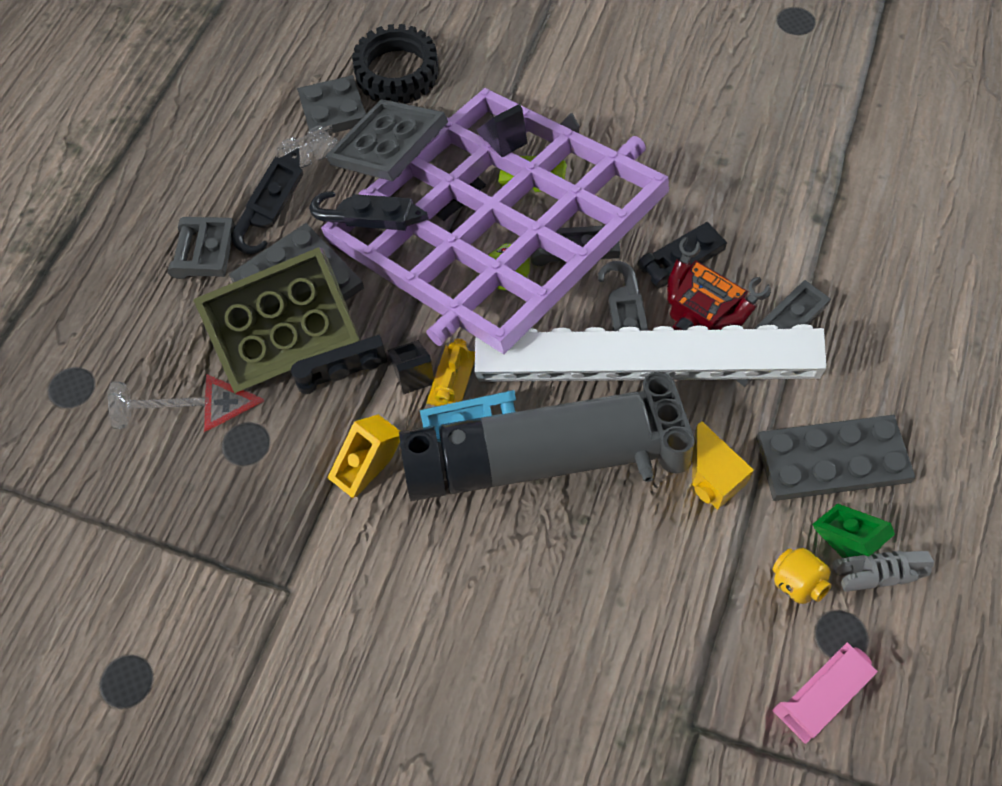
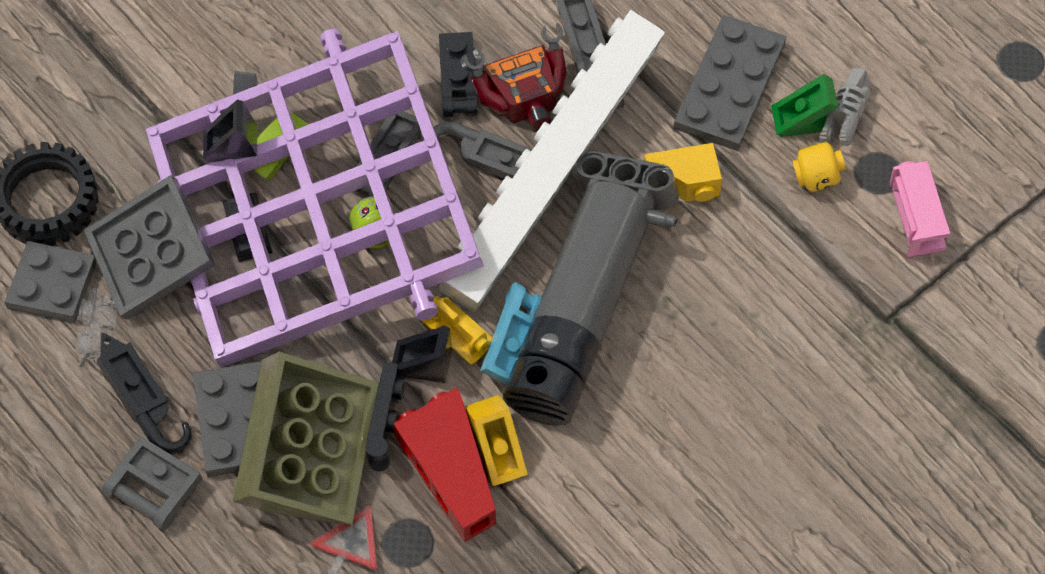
camera: 60 degrees left, 0 degrees up
(320, 431) = (447, 459): none -> red slope
(369, 211) = (235, 303): black plate -> none

